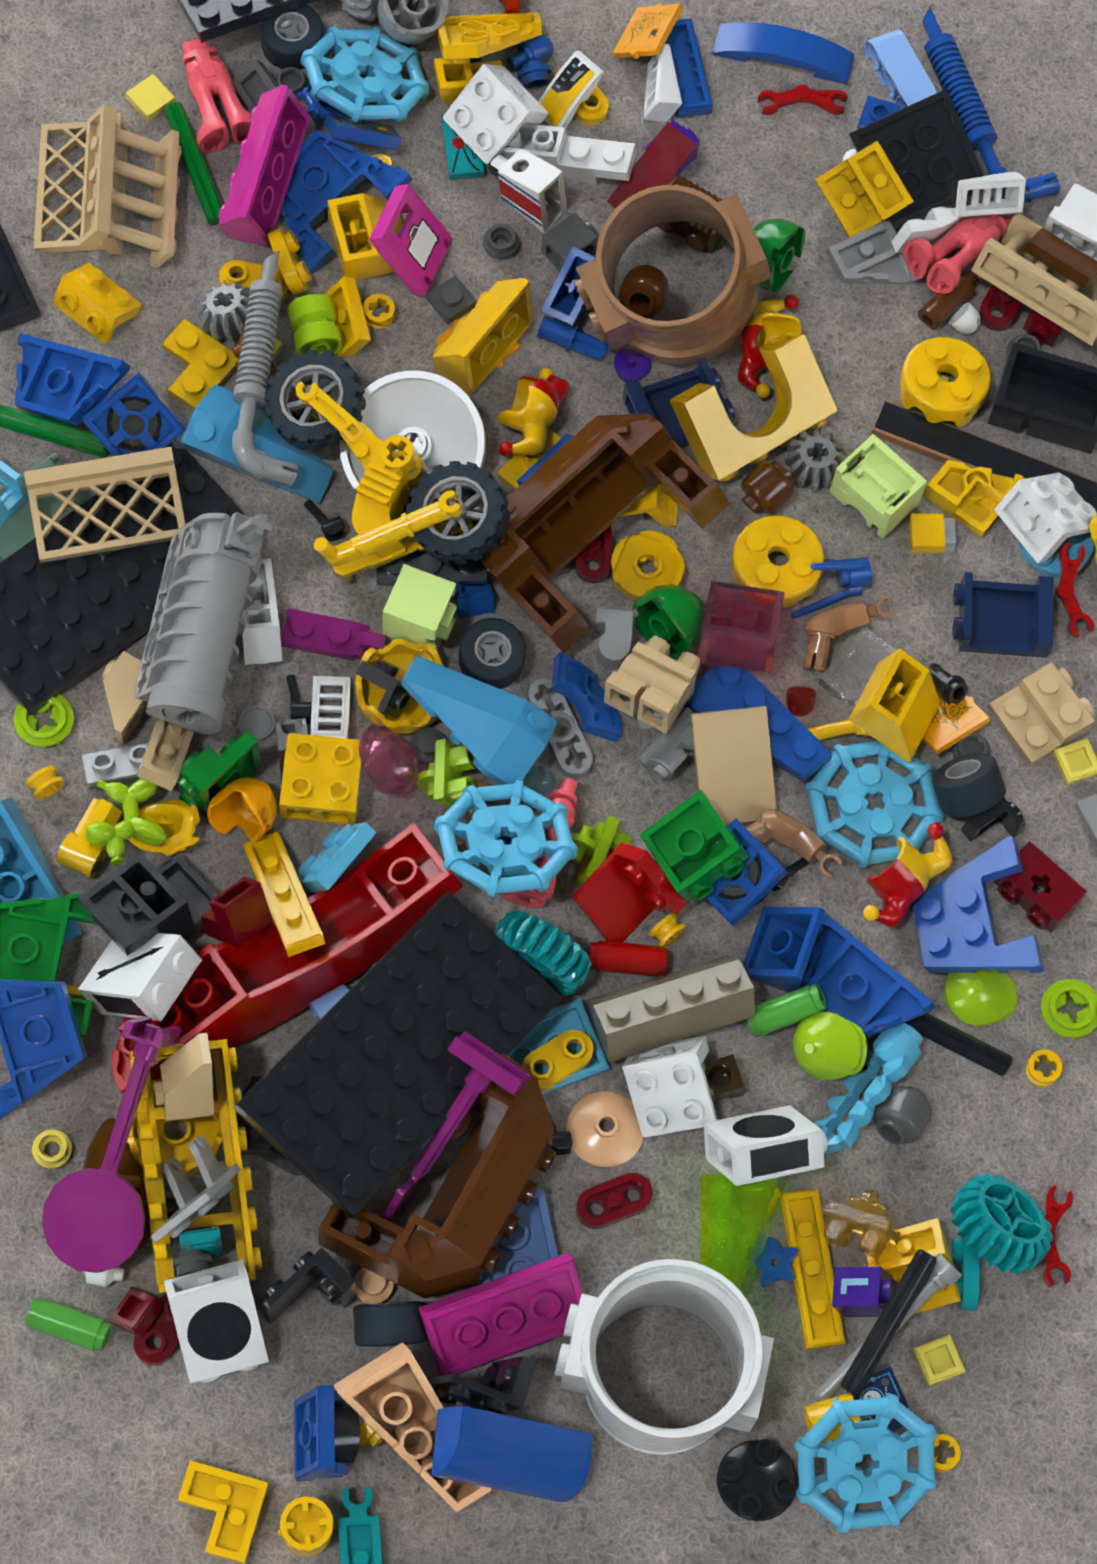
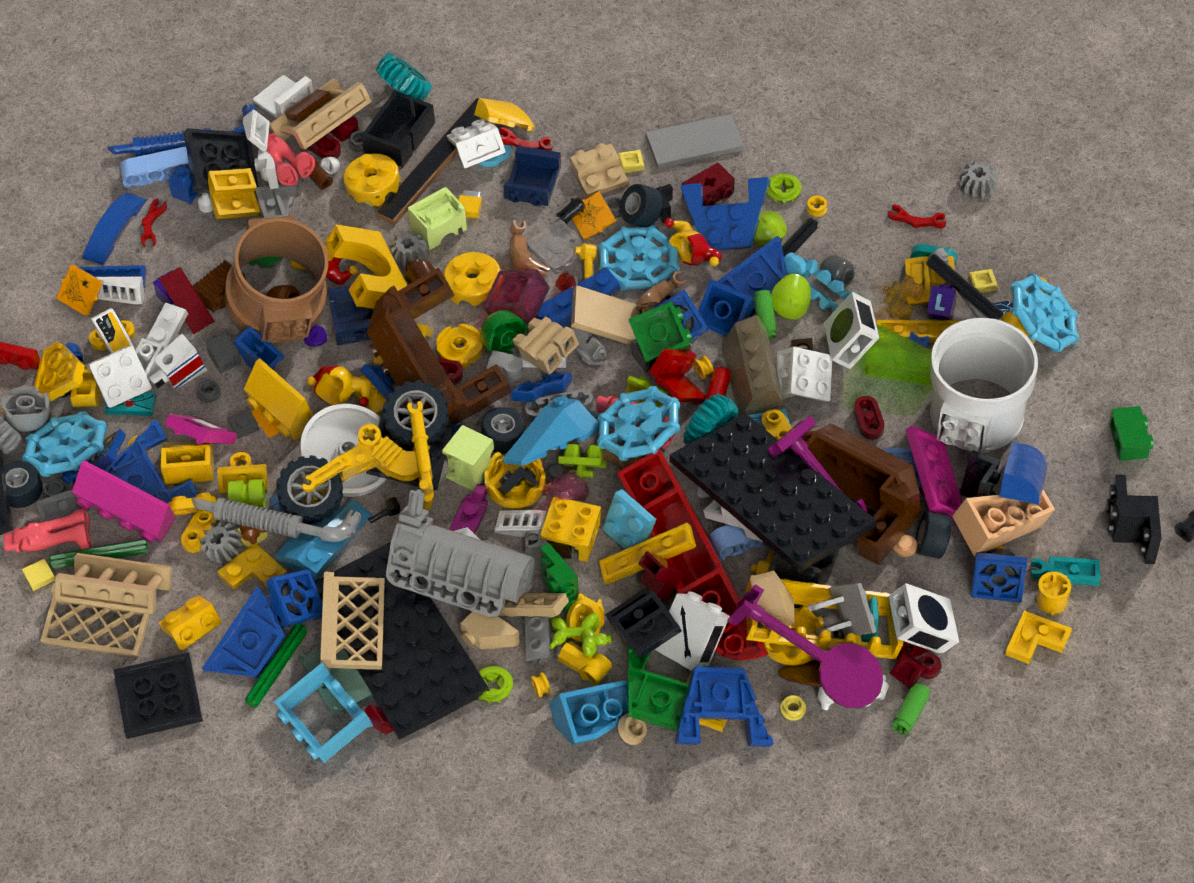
camera: 70 degrees left, 15 degrees down
(191, 1261) = (885, 627): dark grey plate -> none
(243, 804) = (588, 568): light orange helmet -> none
(298, 708) = (516, 541): black hand -> none
(320, 1267) = (903, 562): black bracket -> none
(534, 74) = (90, 354): blue plate -> none
(572, 338) = (291, 361): blue axle -> none
(602, 1147) = (832, 412): light nougat dish -> none
(757, 1480) = (1051, 374): black dish -> none
(849, 572) = (488, 246): blue plant -> none
(897, 704) = (583, 227): yellow slope -> none
(969, 494) = (450, 175): yellow slope -> none
(1001, 1223) = (911, 231): teal gear -> none

